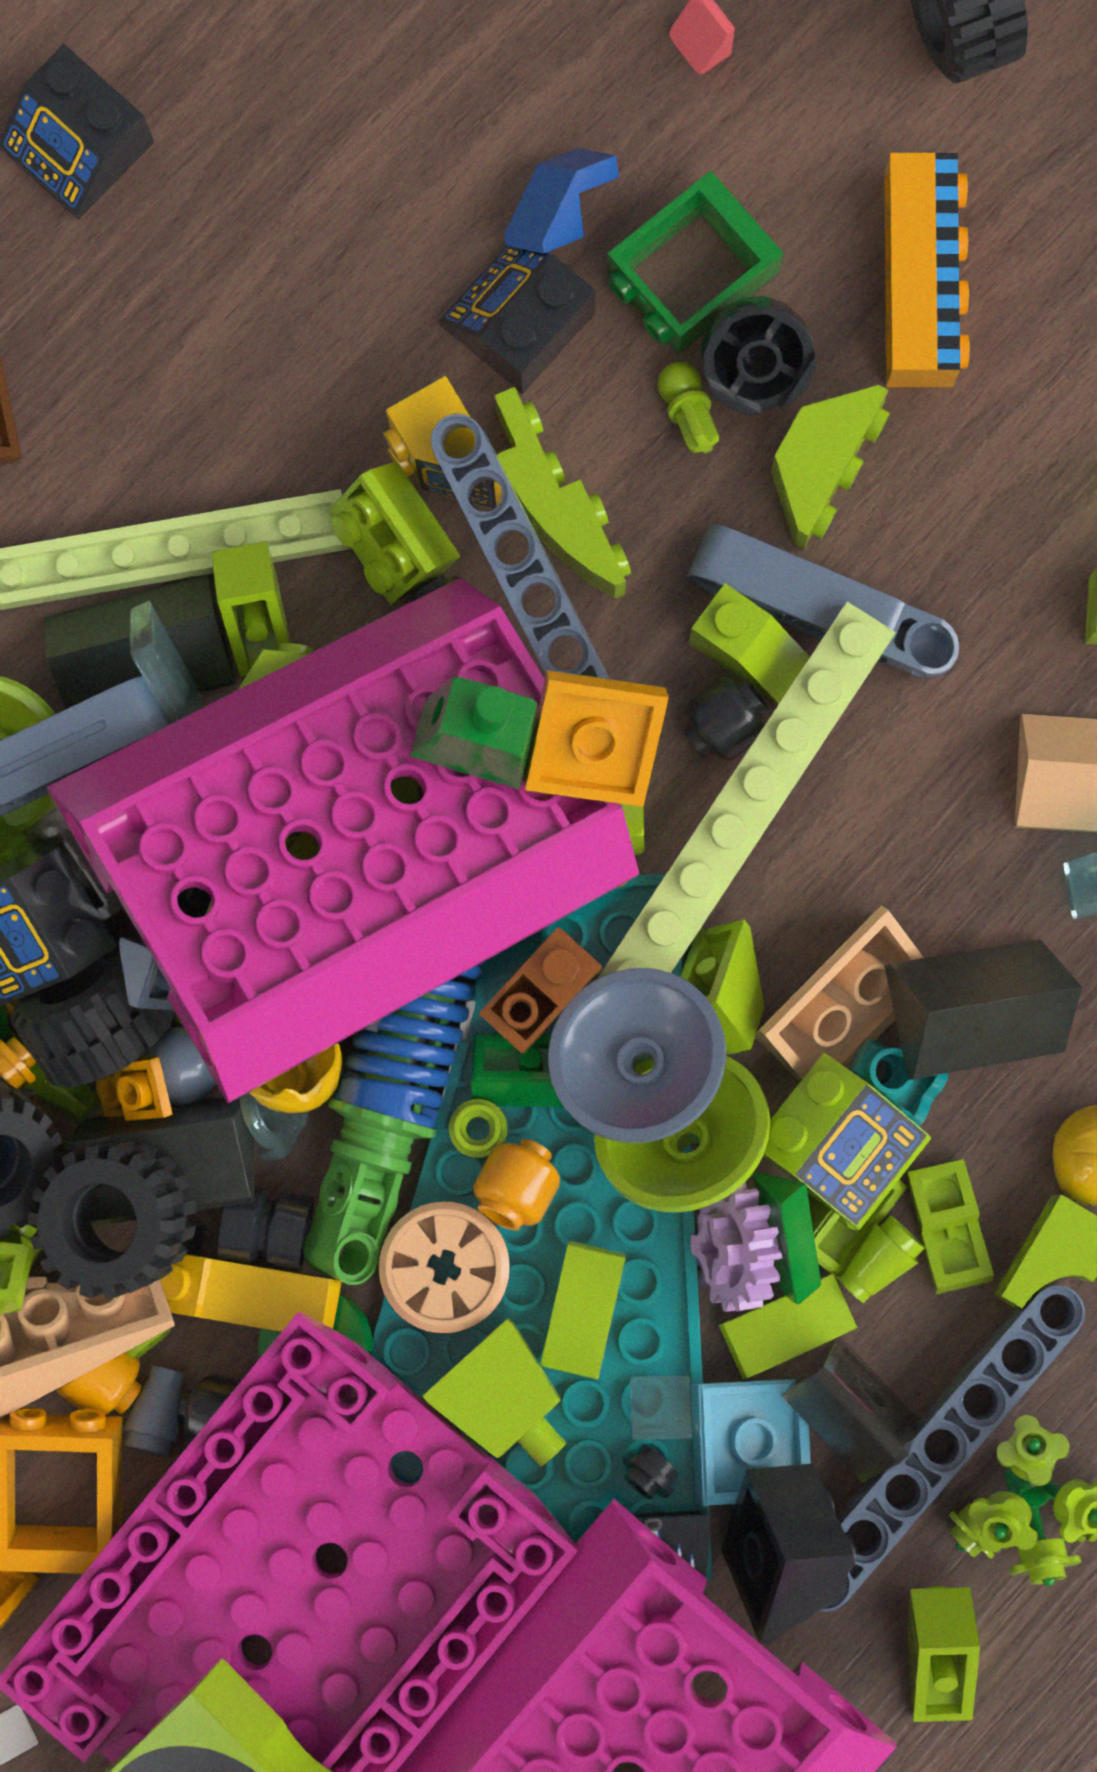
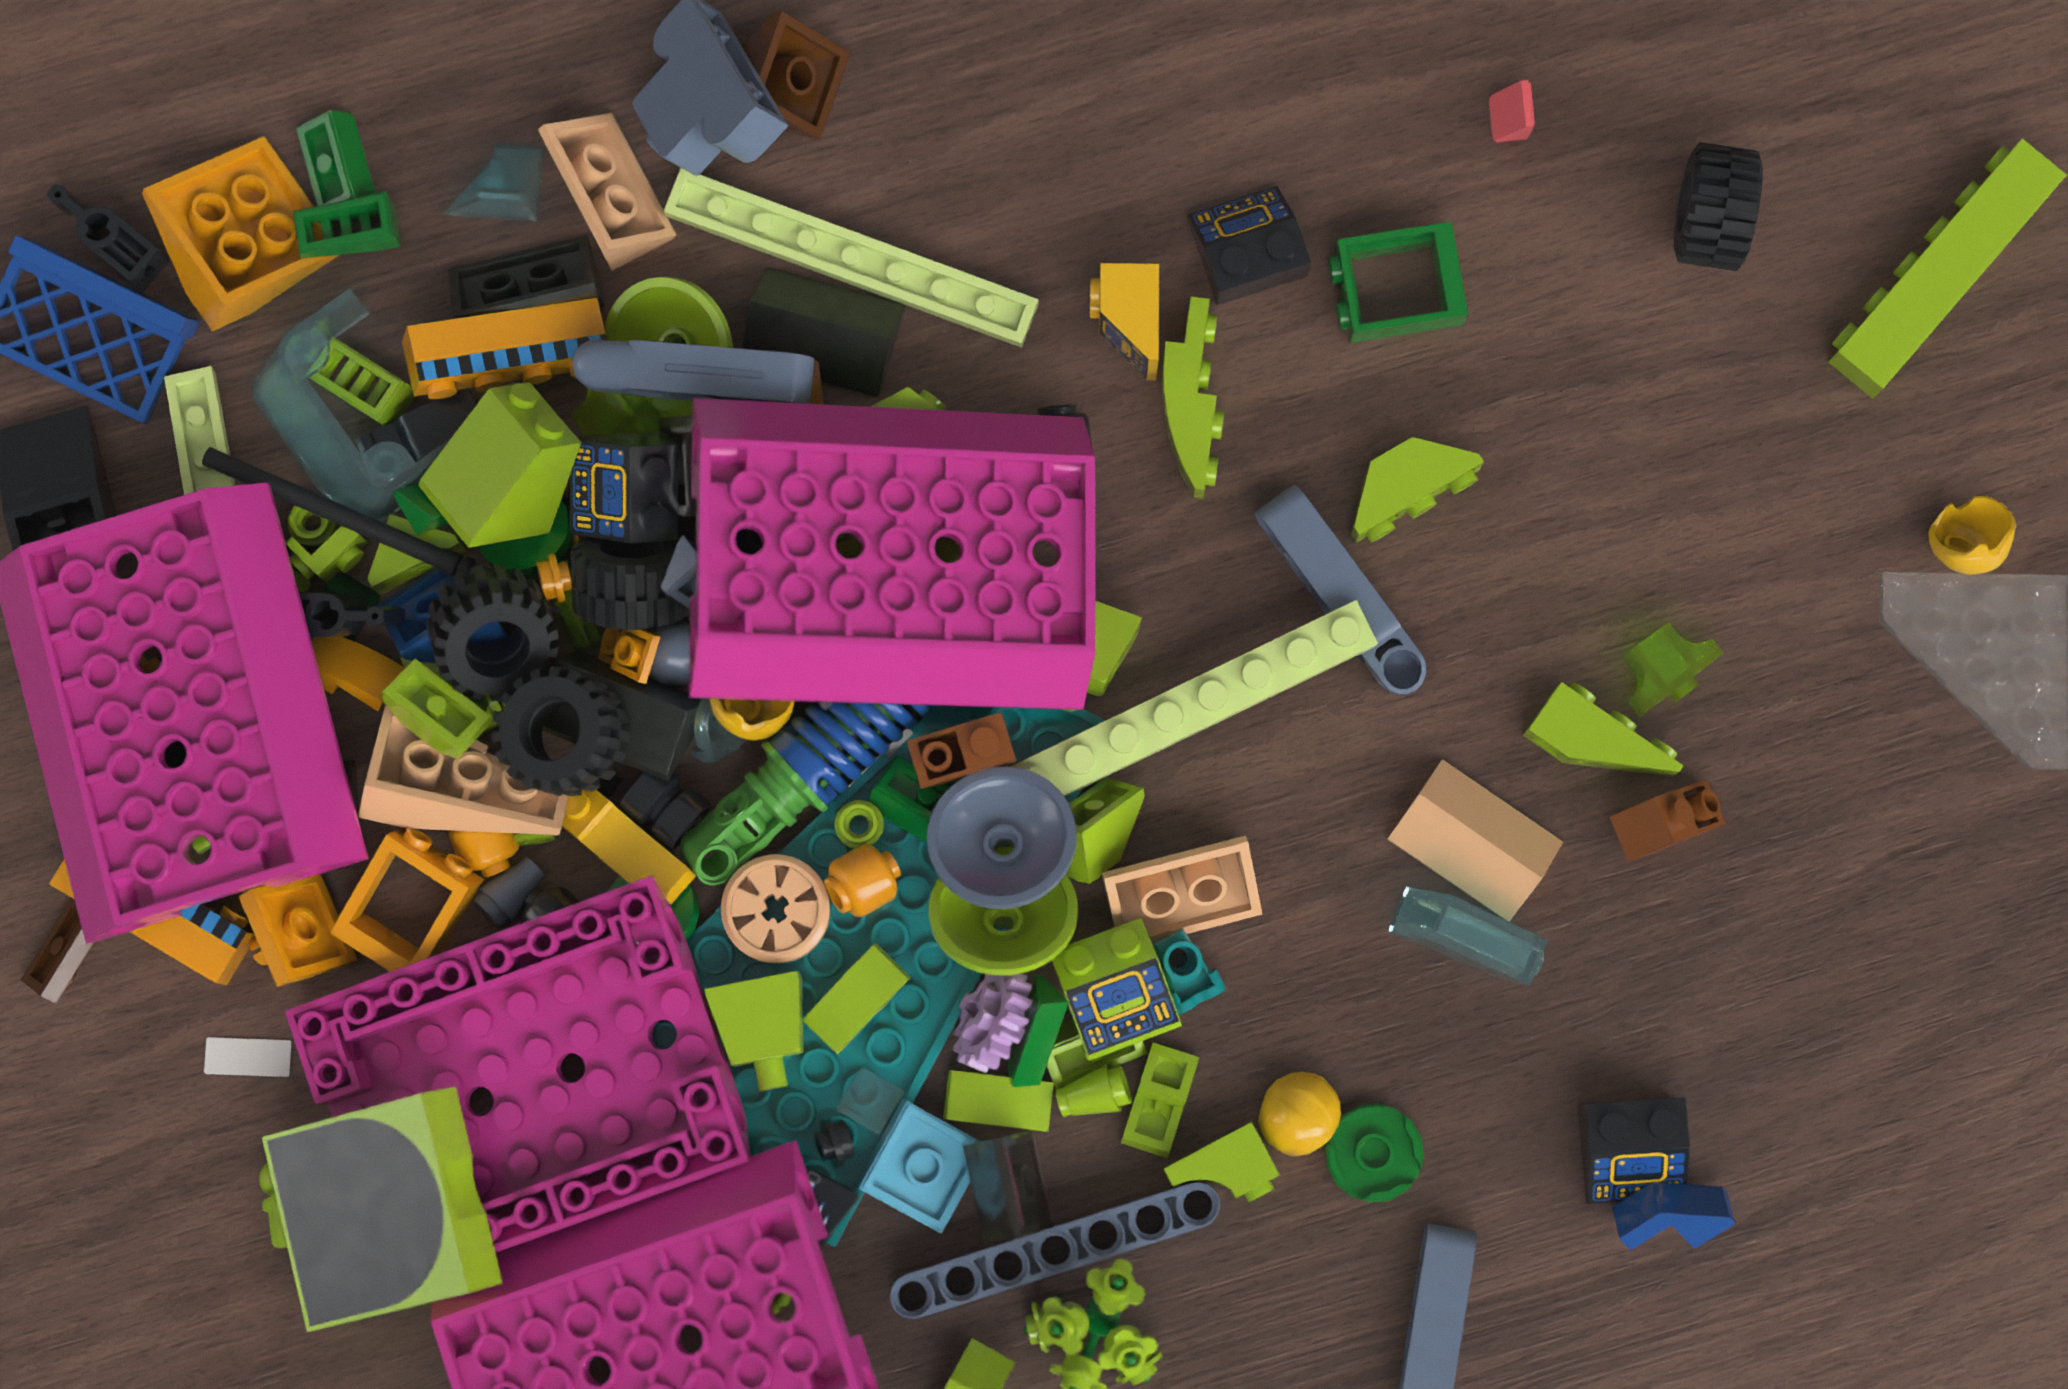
camera: 30 degrees right, 0 degrees up
(162, 665) = (829, 356): clear light blue tile -> none
(249, 602) = (922, 345): lime slope -> none
(391, 532) = (1055, 354): lime slope -> none
(477, 731) = (1020, 538): green torso -> none
(492, 526) = (1121, 444): sand blue beam -> none
(551, 203) = (1316, 179): blue slope -> none
(595, 738) = (1102, 592): light orange tile -> none
(688, 406) = (1332, 387): lime axle -> none
(726, 717) = (1219, 632): black head -> none
(748, 643) = (1269, 588): lime slope -> none
(757, 355) = (1402, 379): black cylinder -> none
(786, 1548) = (899, 1252): black slope -> none
(923, 270) = (1567, 387): light orange brick -> none
(981, 1007) = (1277, 954): pearl dark grey slope -> none

